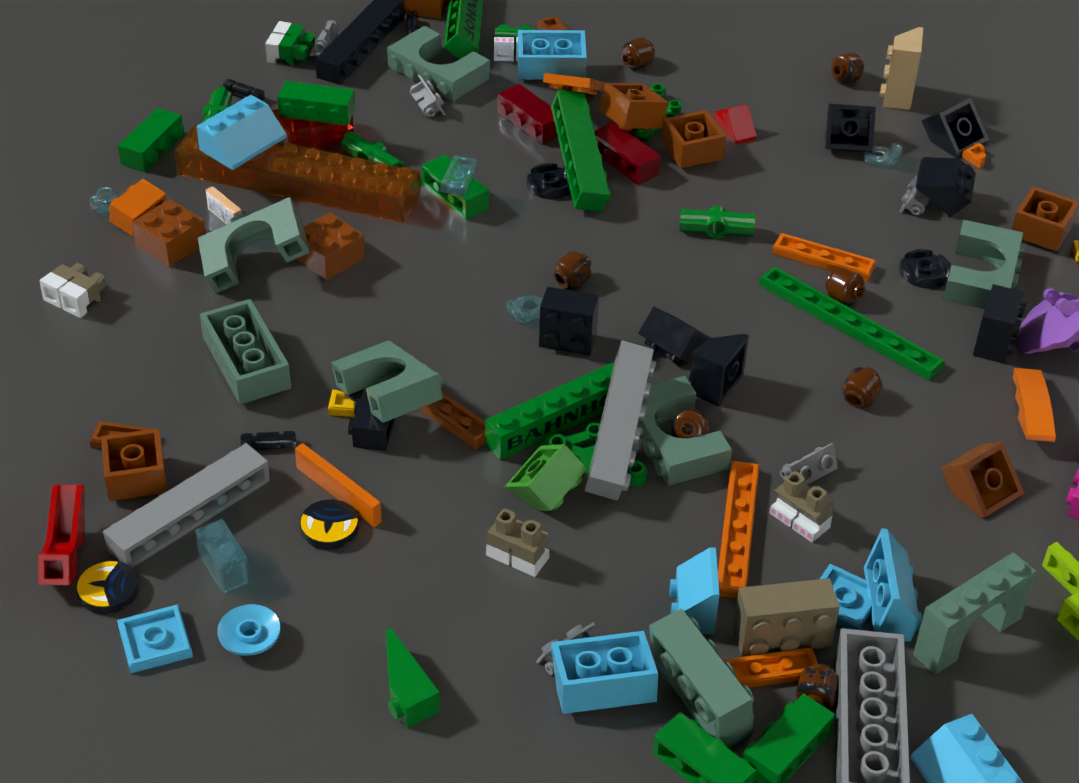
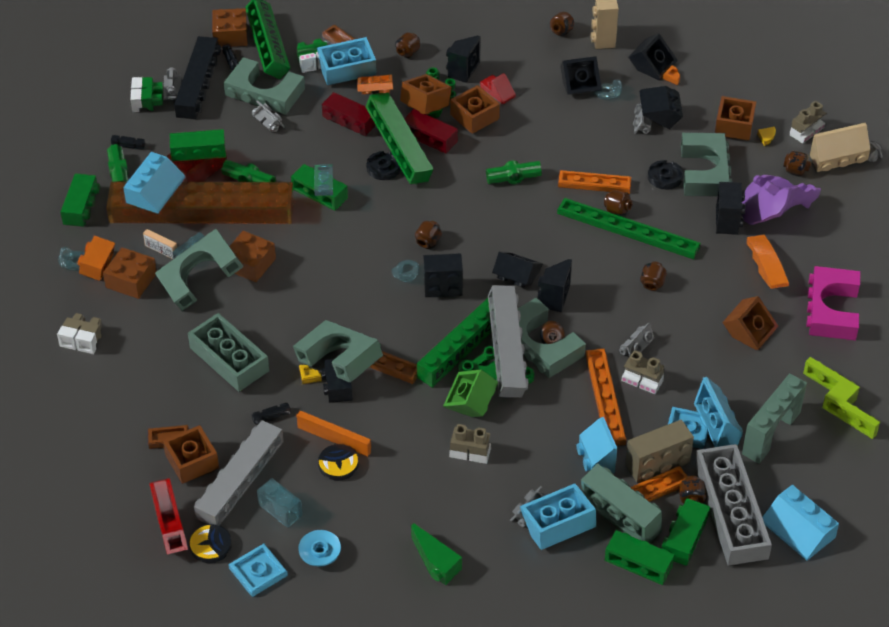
camera: 15 degrees left, 5 degrees up
(702, 79) = (463, 58): none -> black slope

